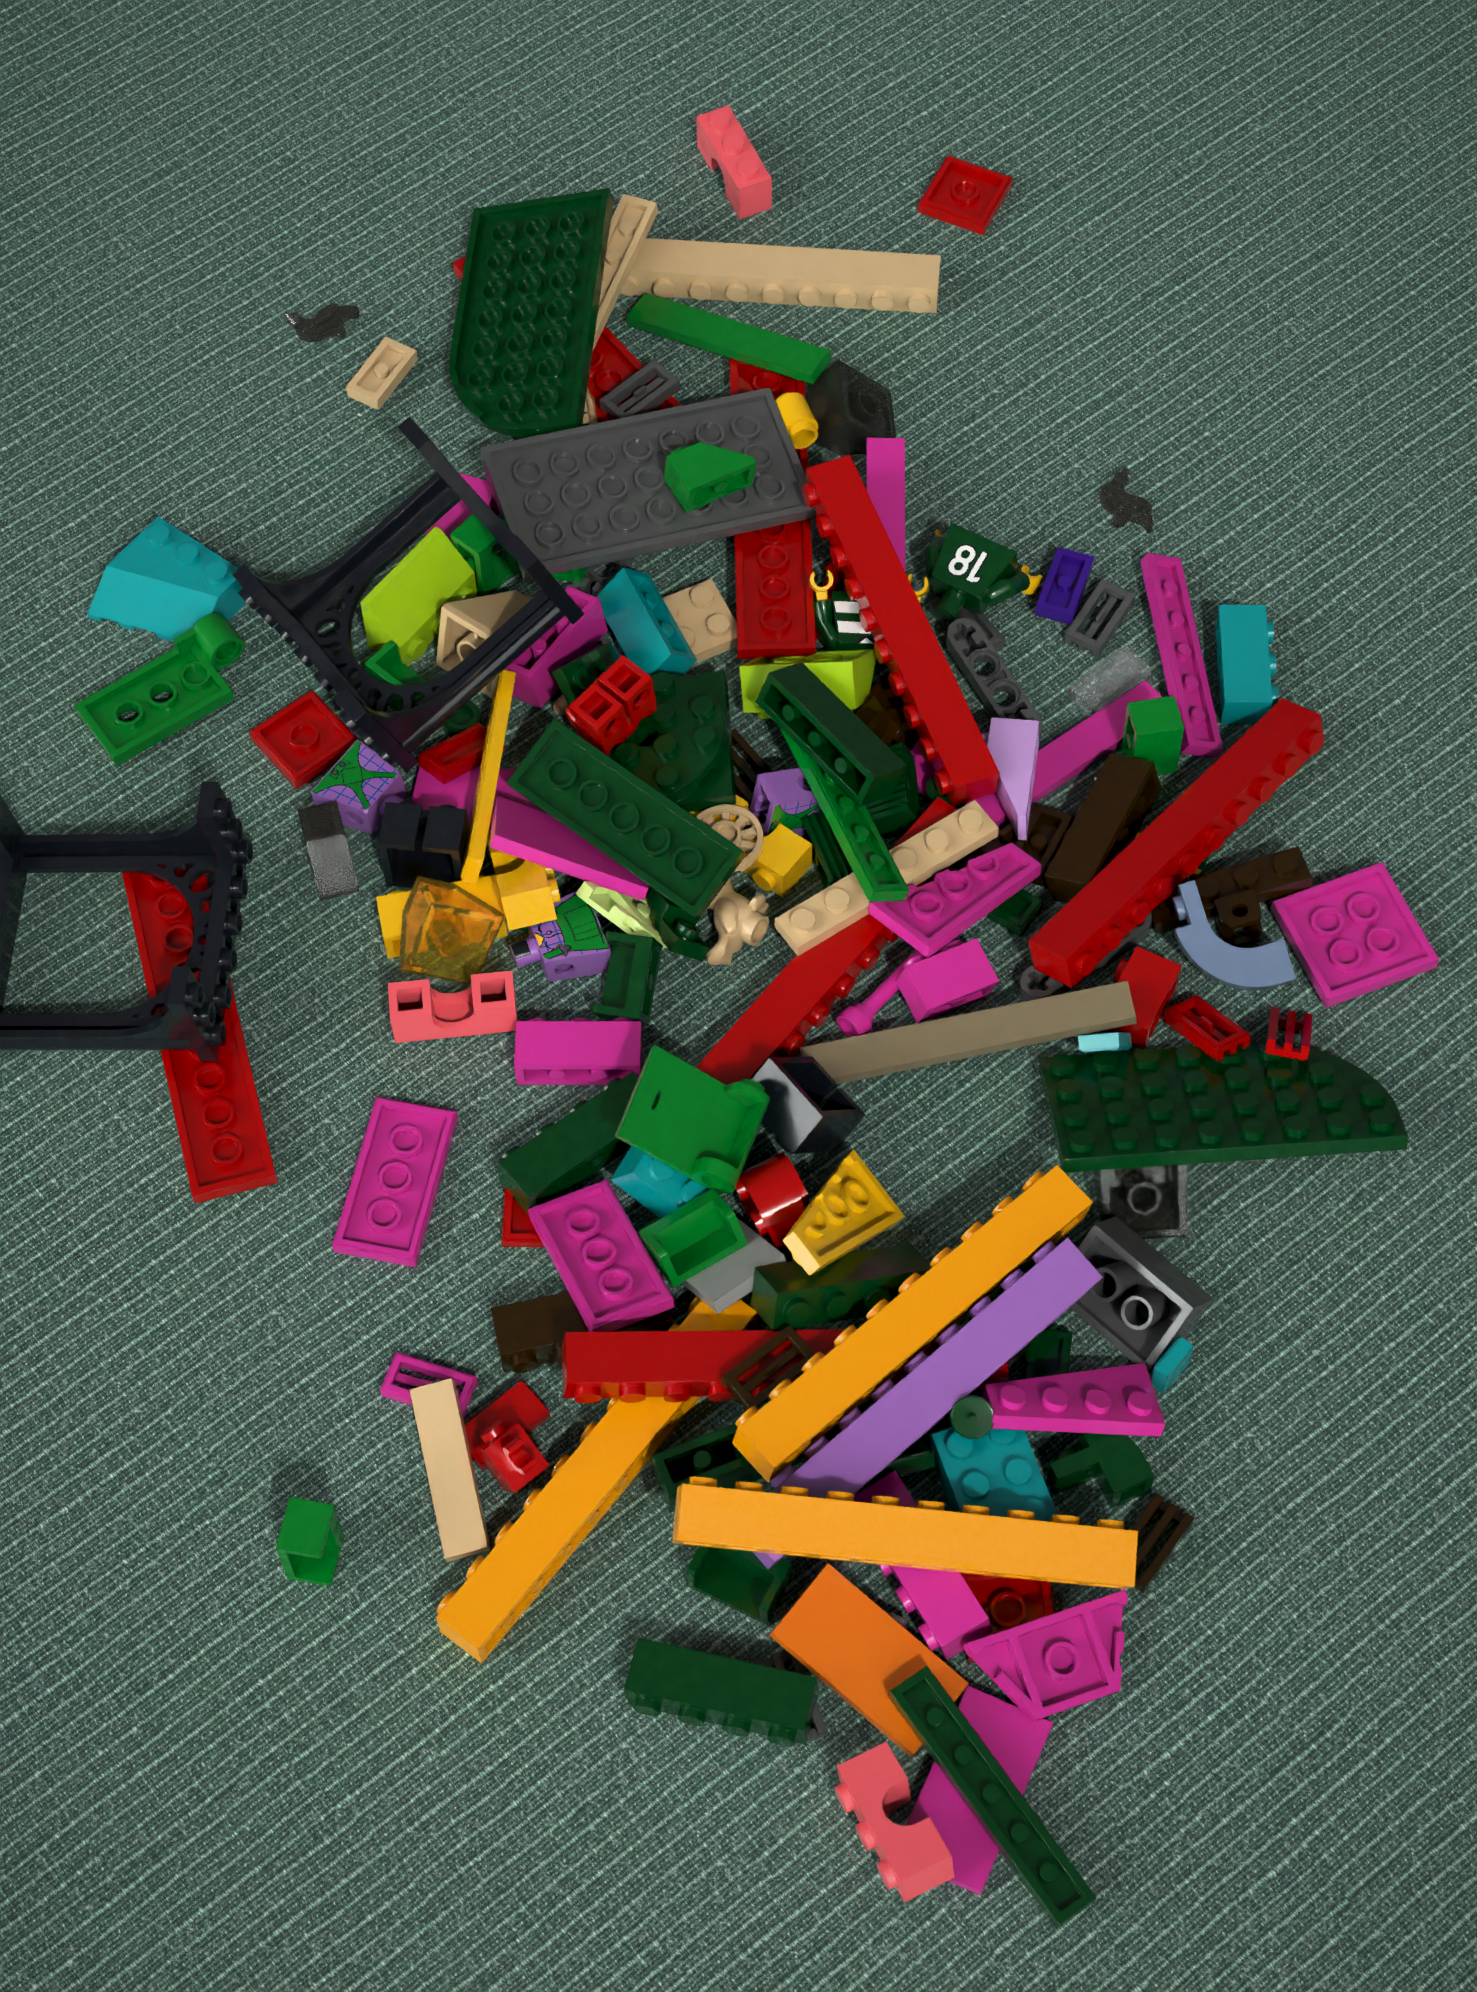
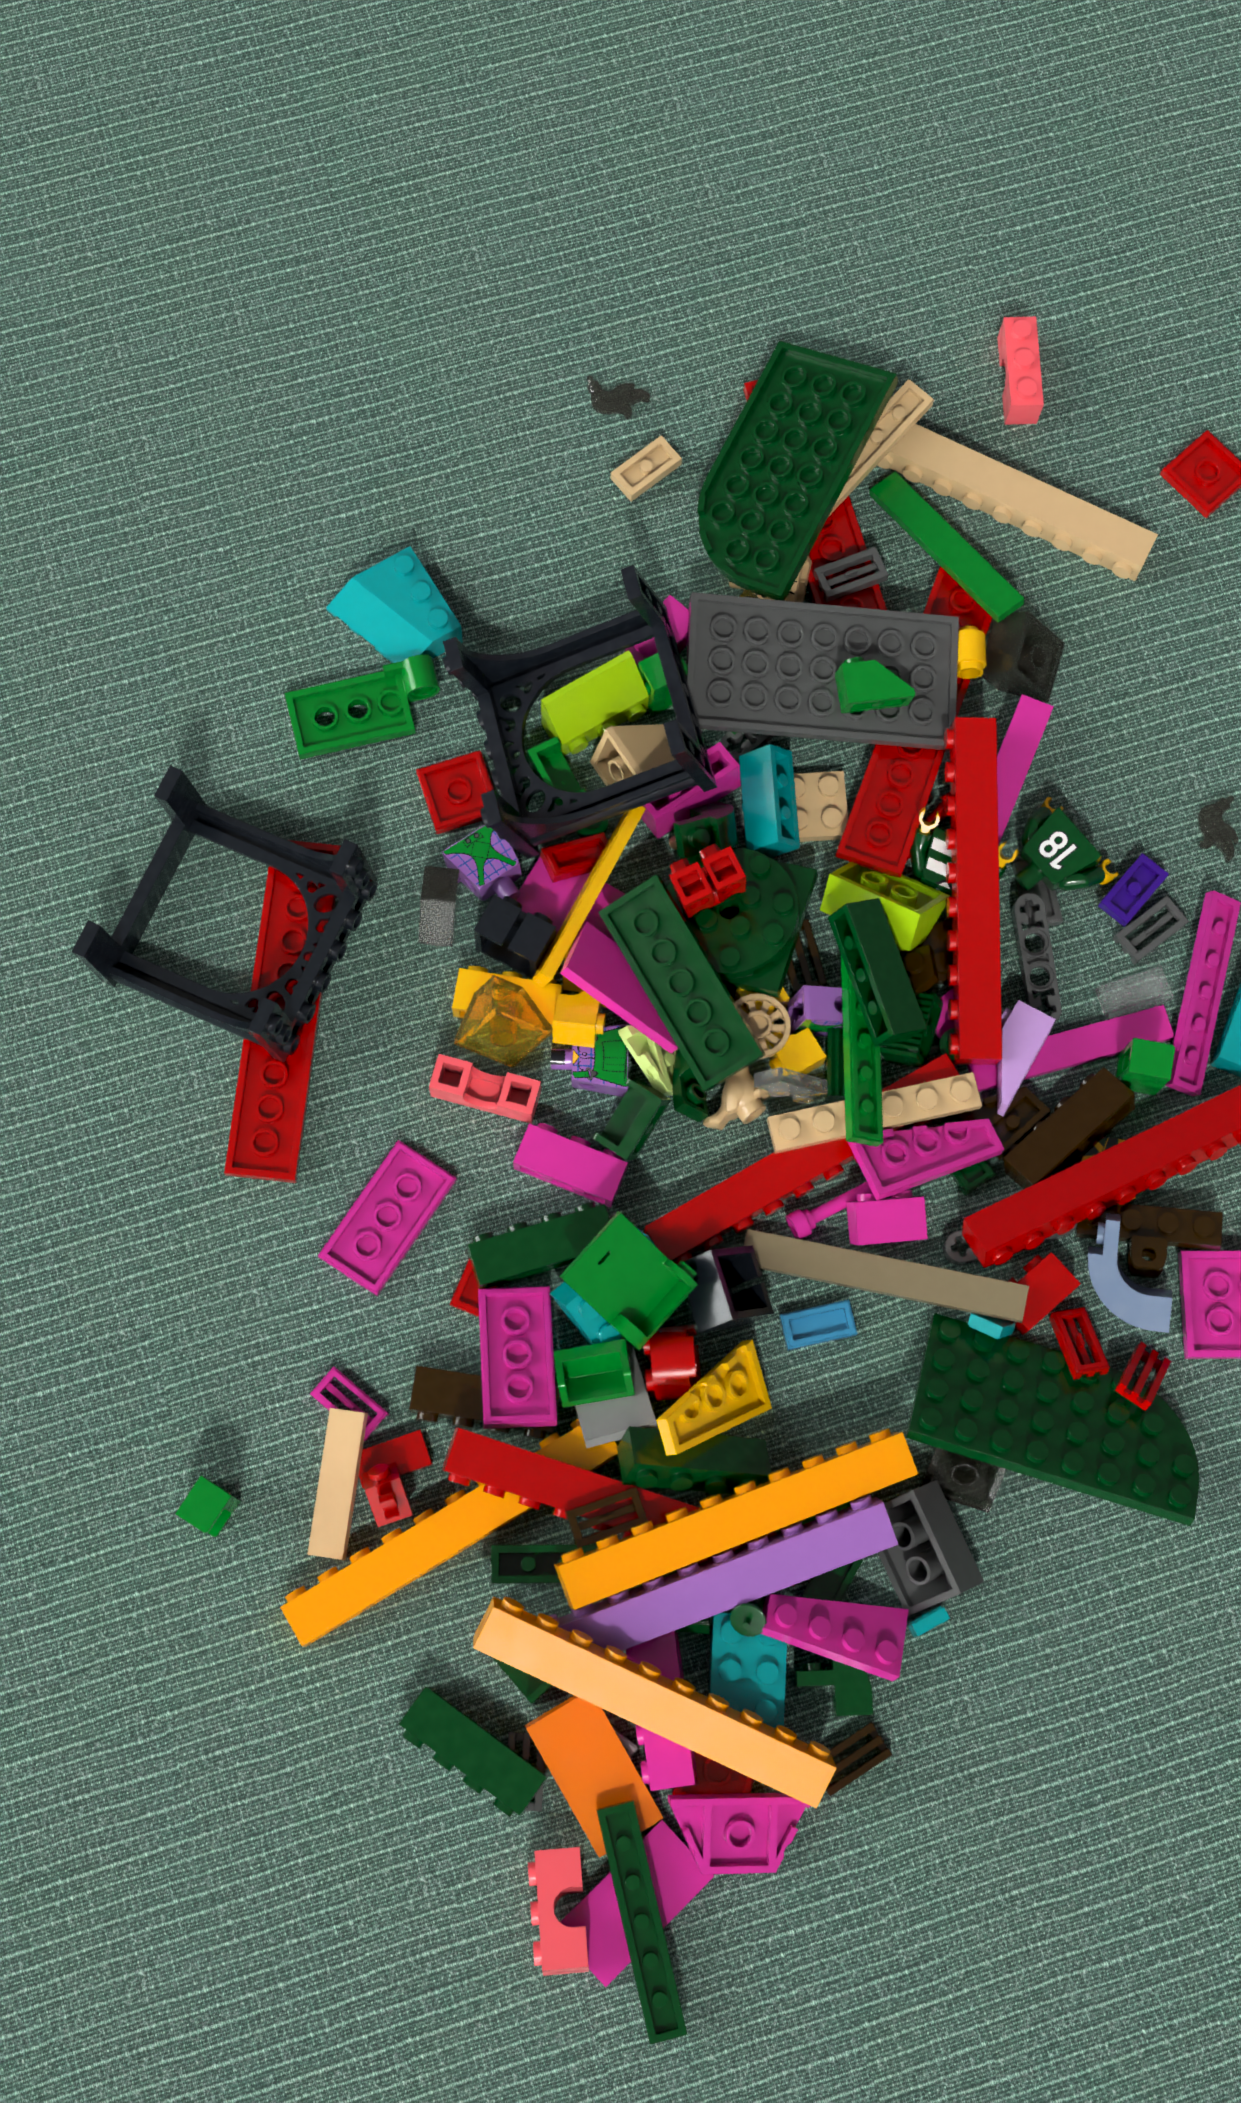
camera: 15 degrees right, 15 degrees up
(785, 880) = (785, 1082): none -> clear plate
(918, 1117) = (818, 1325): none -> dark azure tile

